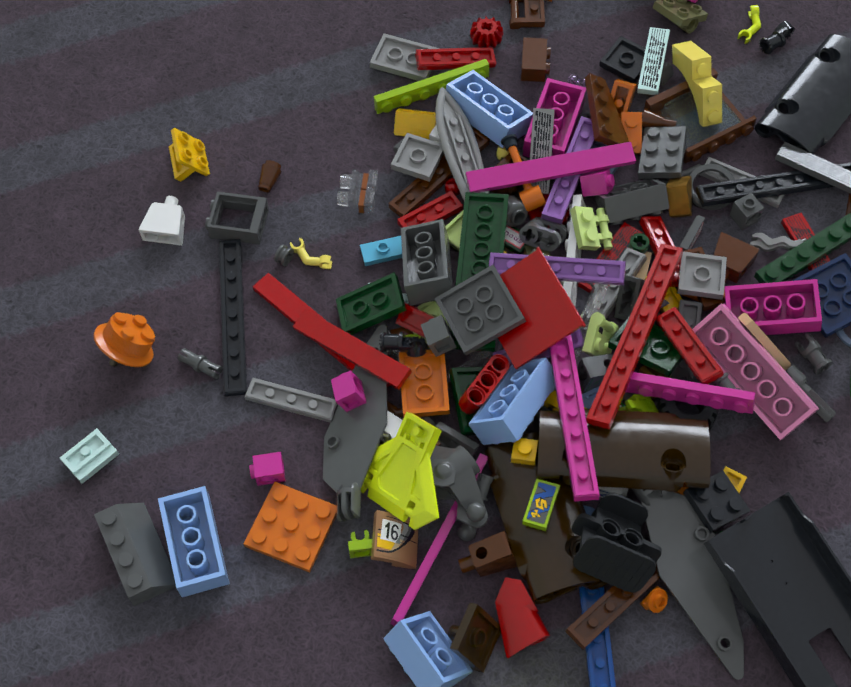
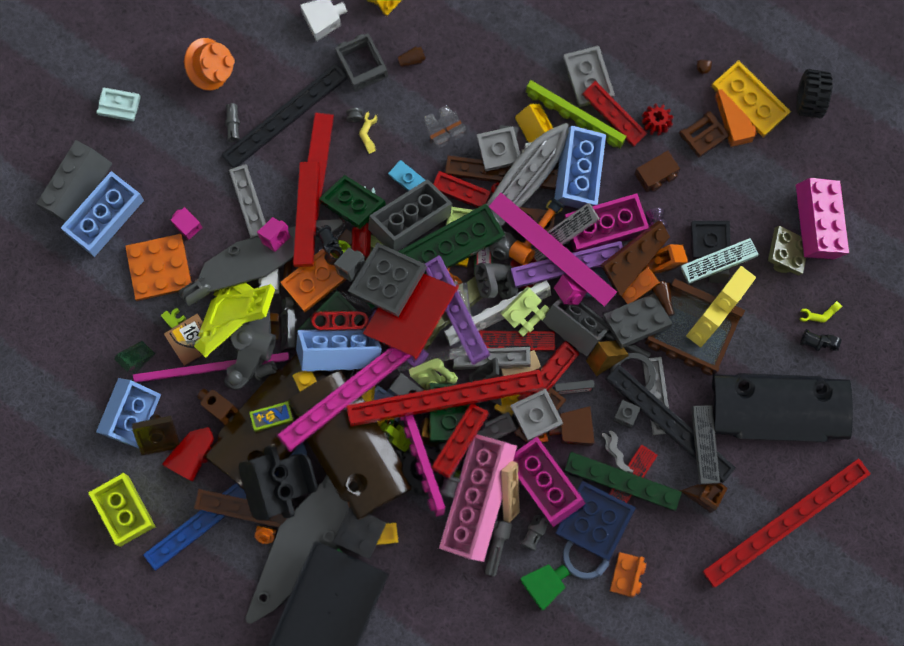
camera: 50 degrees right, 15 degrees up
(372, 609) = (134, 357): none -> clear green slope
(639, 237) = (534, 350): dark green bush -> none

